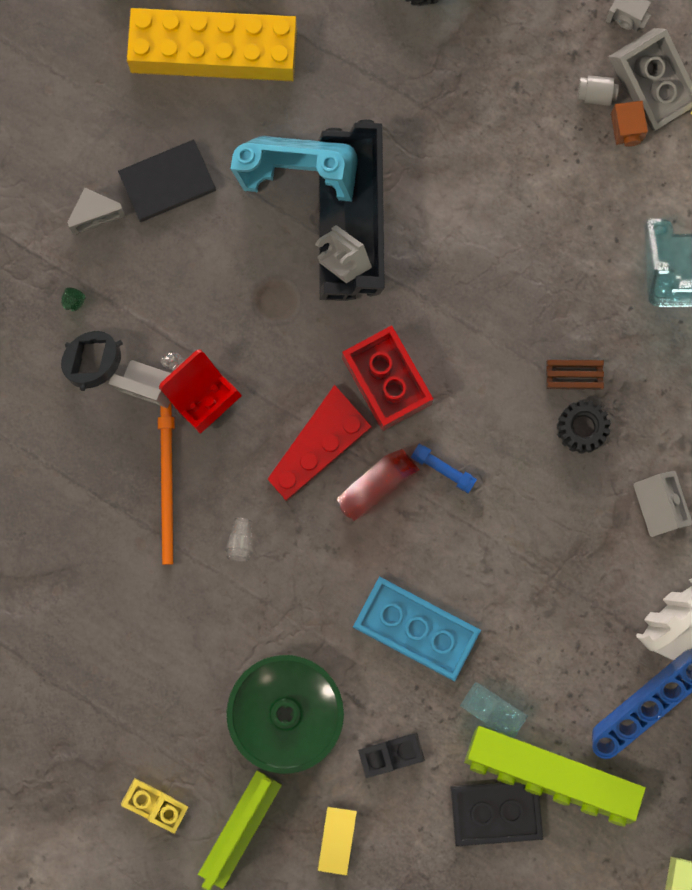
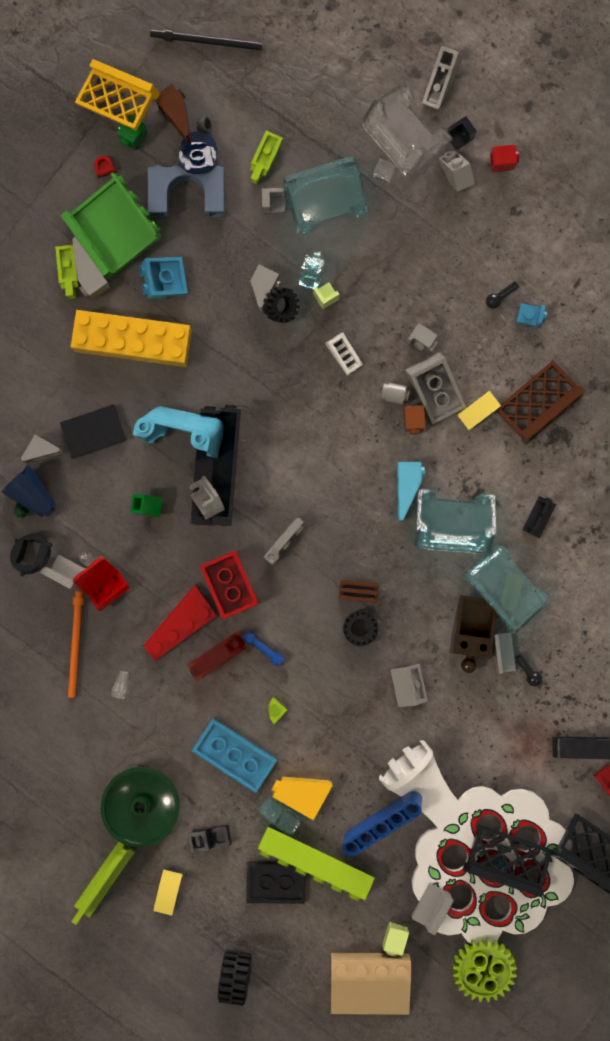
camera: 10 degrees right, 5 degrees up
(84, 272) = (30, 493): none -> dark blue cone
(154, 805) = (49, 857): light yellow slope -> none
(260, 273) = (146, 505): none -> green brick
(458, 311) = (283, 541): none -> light grey hinge
(471, 557) = (276, 710): none -> lime tile
(511, 48) = (345, 343): none -> white slope
(524, 675) = (302, 794): none -> yellow slope
(630, 210) = (408, 481): none -> medium azure slope

